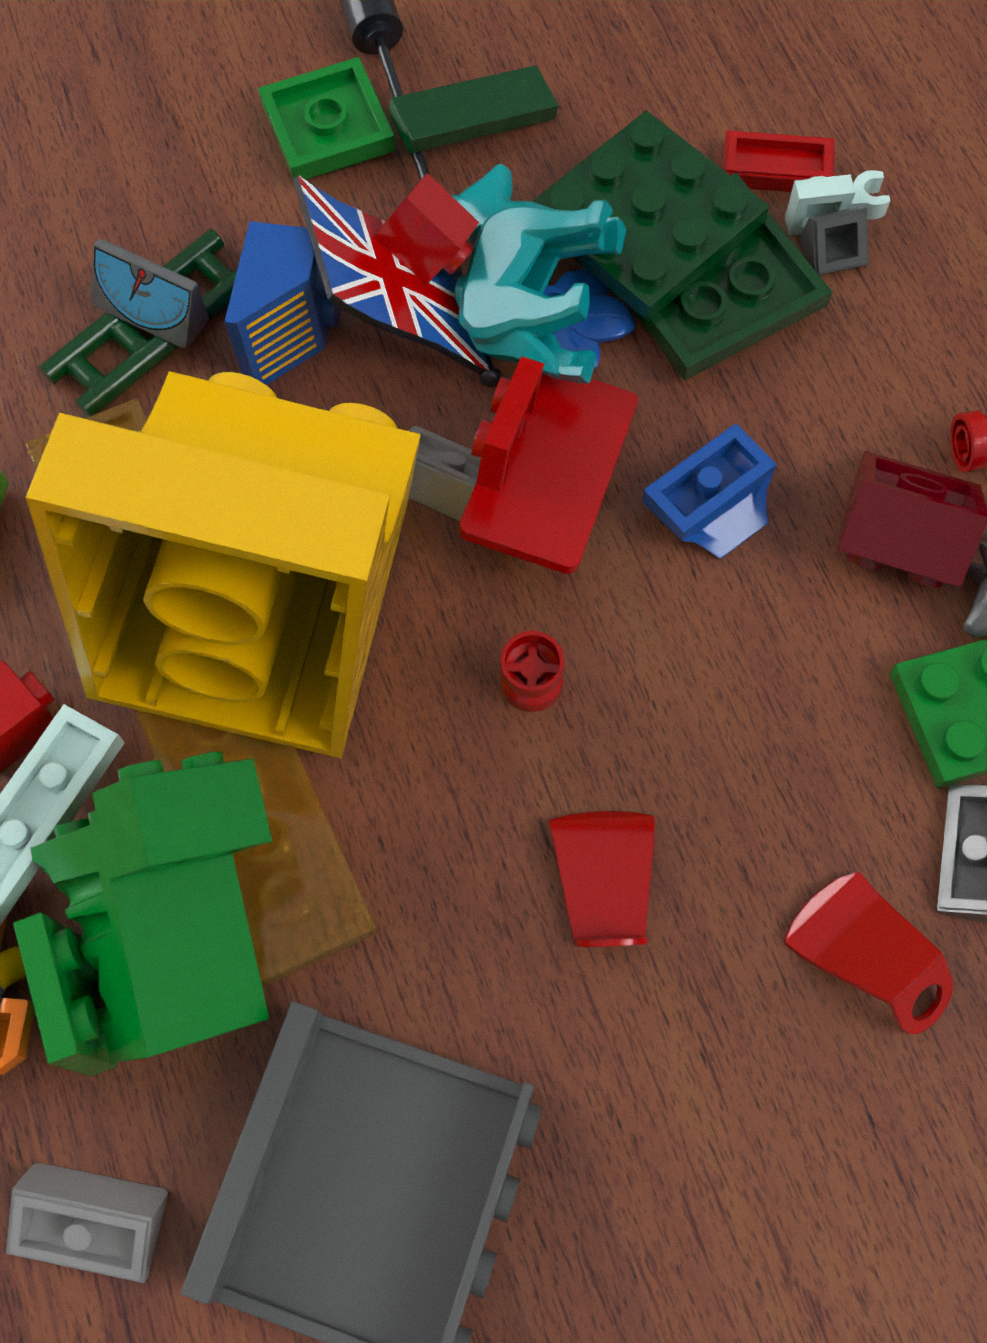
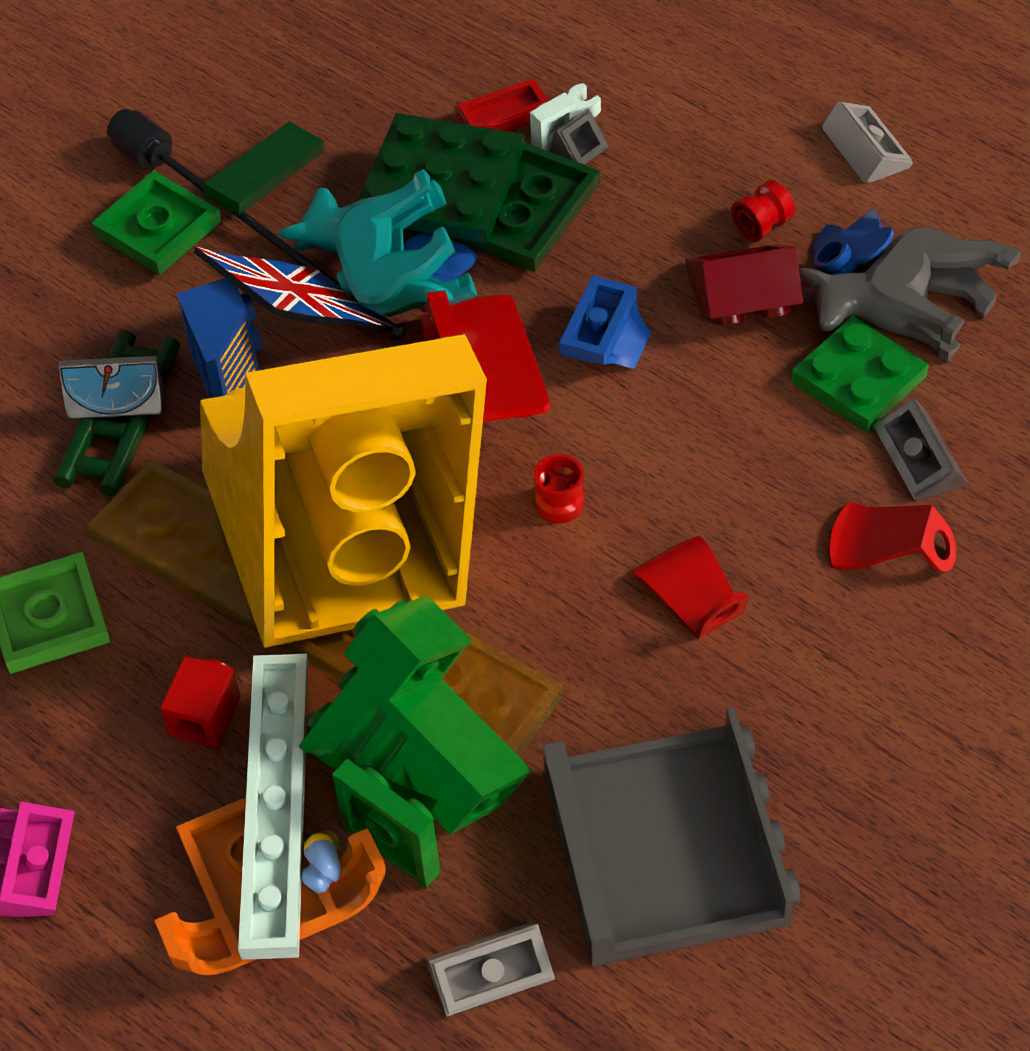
camera: 30 degrees left, 15 degrees down
(428, 231) = (300, 250): red brick -> none

